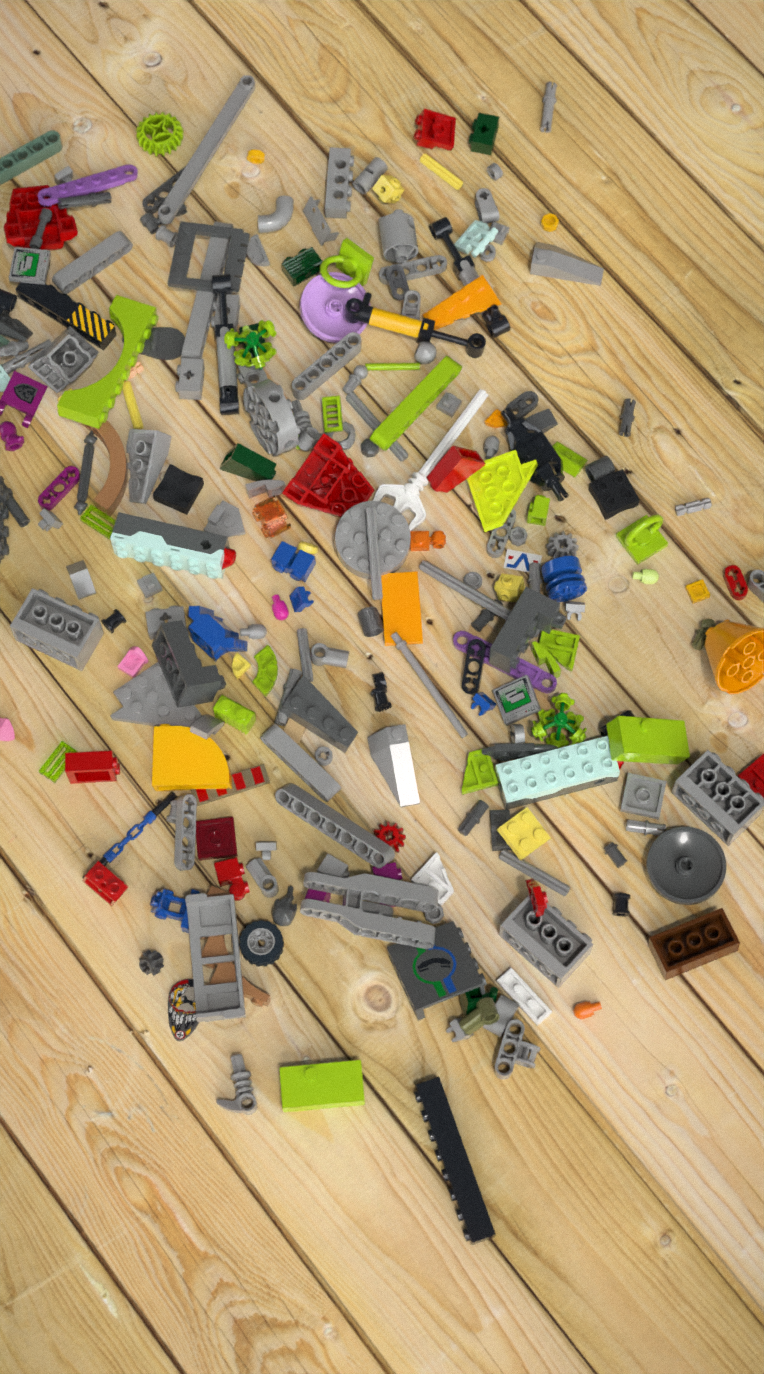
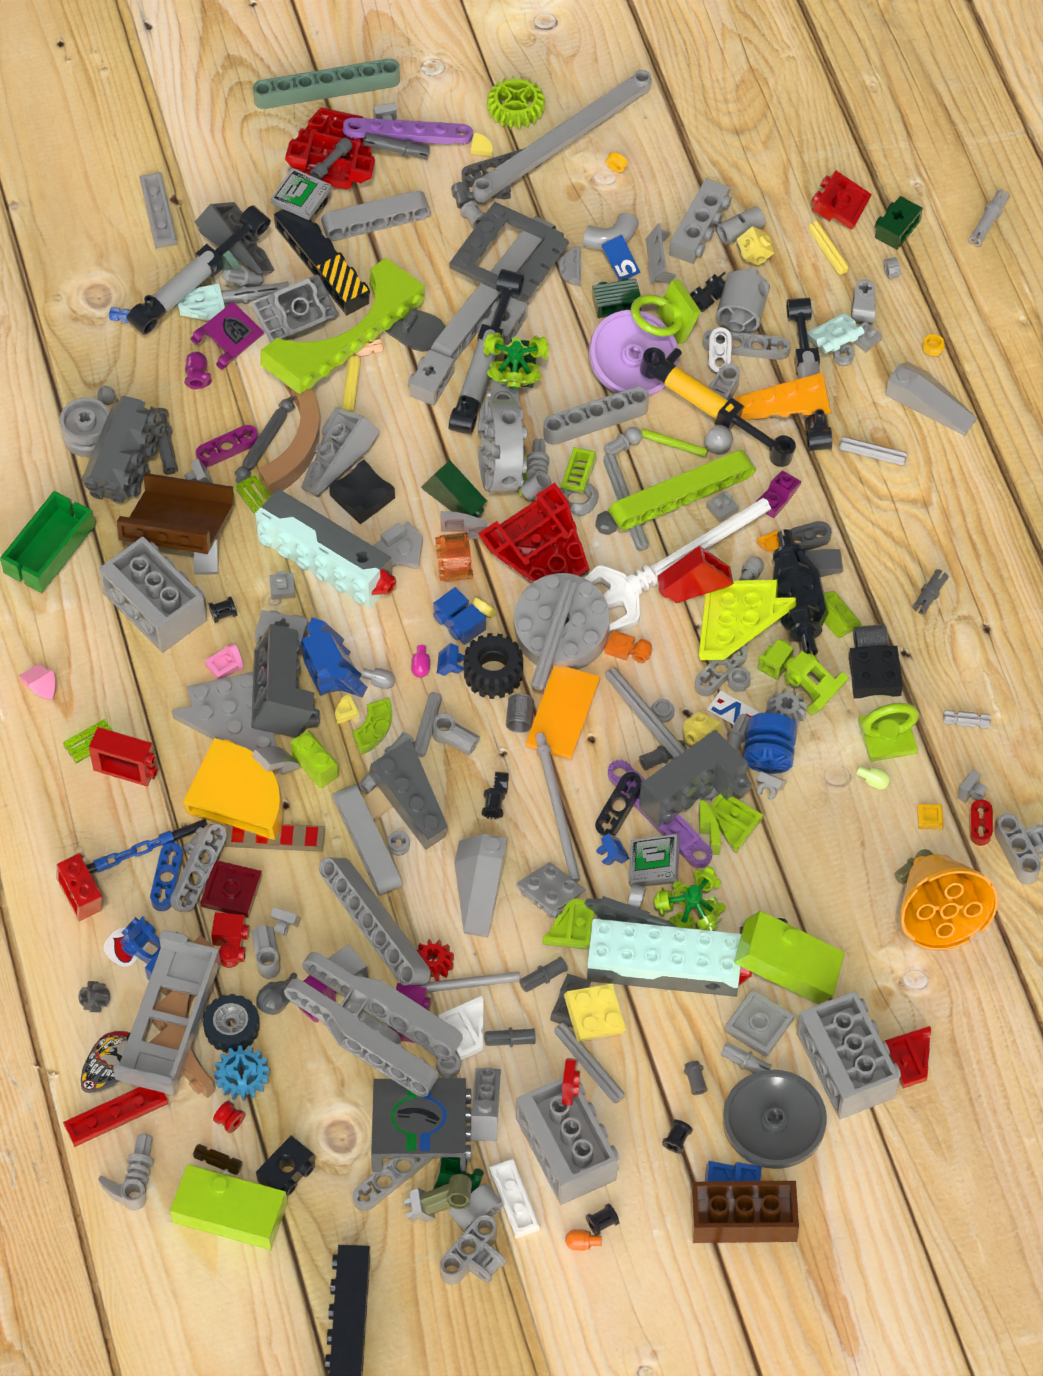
camera: 20 degrees right, 10 degrees down
(48, 558) = (178, 513): none -> reddish brown panel
(148, 177) = (481, 145): none -> light yellow tile
(148, 918) = (114, 950): none -> white sticker
(155, 835) = (162, 867): none -> blue beam
(204, 1048) = (113, 1114): none -> red plate
(279, 982) = (230, 1074): none -> dark azure gear
(291, 1016) = (229, 1116): none -> red wheel
(292, 233) = (620, 258): none -> blue sticker
(296, 1051) = (217, 1159): none -> dark brown axle
(333, 578) = (493, 649): none -> black tyre
(351, 1027) = (290, 1154): none -> black brick
(371, 232) = (702, 296): none -> black hinge
(424, 842) = (472, 982): none -> light grey bar
(433, 1014) = (396, 1176): none -> light grey beam
(451, 750) = (549, 889): none -> light grey hinge
(470, 875) = (510, 1037): none -> dark grey axle
(474, 933) = (485, 1104): none -> light grey slope
(486, 378) = (780, 492): none -> magenta slope
(540, 321) = (872, 450): none -> axle
(583, 527) = (820, 694): none -> lime tile
(595, 988) = (602, 1219): none -> black bush
(669, 919) = (739, 1172): none -> blue slope
(720, 559) = (972, 788): none -> light grey tile

